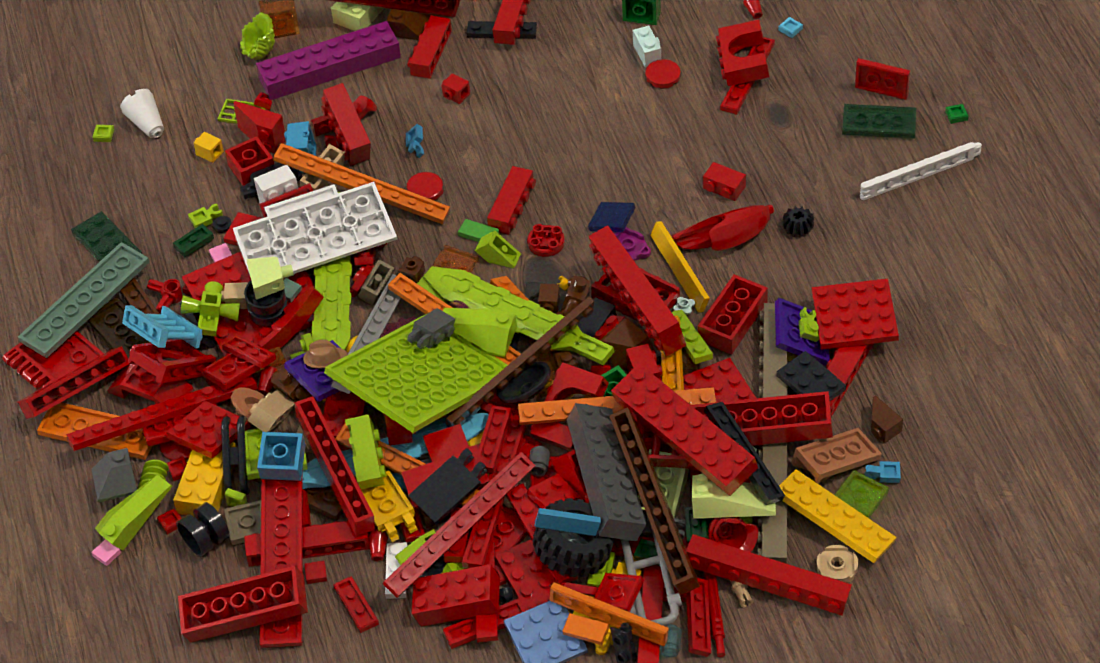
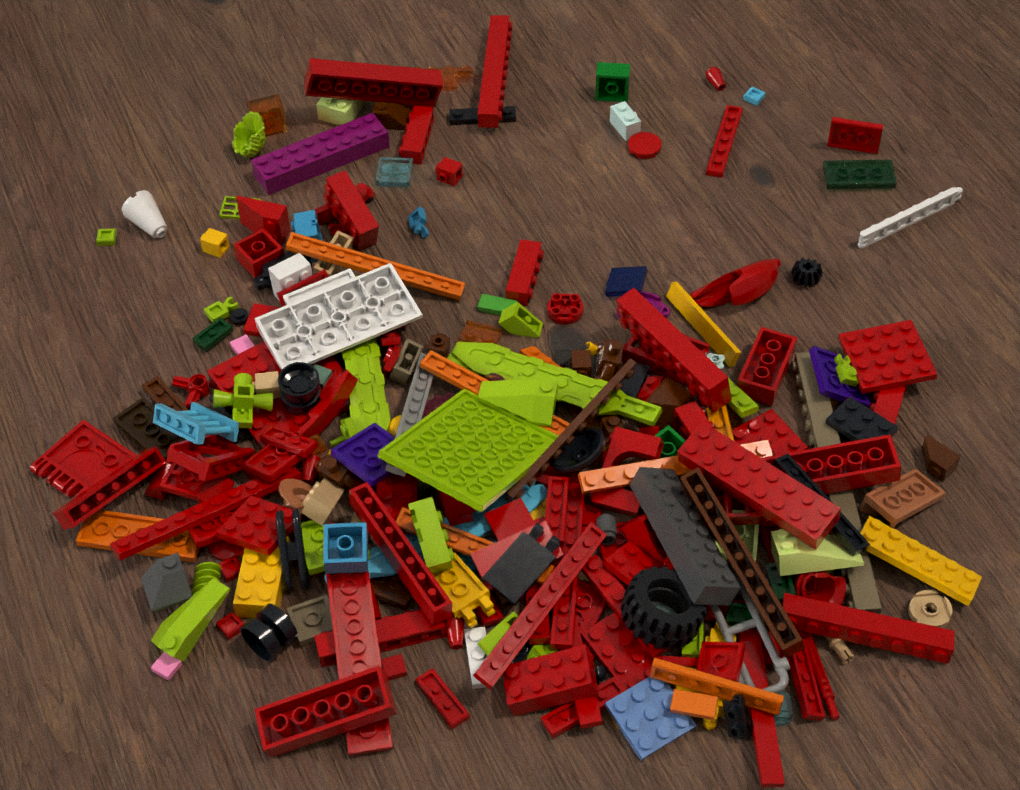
camera: 10 degrees left, 0 degrees up
(83, 300) = (108, 402): sand green plate -> none
(100, 236) = (124, 343): clear green plate -> none
(235, 498) = (297, 595): lime tile -> none
(263, 101) = (261, 194): red tile -> none
(267, 275) = (300, 362): yellowish green torso -> none
(323, 353) = (370, 438): medium nougat piece -> none
(400, 85) = (394, 172): none -> clear light blue plate
(426, 185) = (437, 263): red tile -> none
(432, 329) = (475, 403): dark grey hinge -> none
(567, 521) = (660, 592): dark azure tile -> none
(724, 181) = (727, 240): red brick -> none
(741, 69) = (717, 135): red arch -> none
(862, 493) = (937, 534): clear neon green plate -> none
(886, 472) = (954, 509): dark azure plate -> none
(956, 113) = (928, 163): green tile -> none

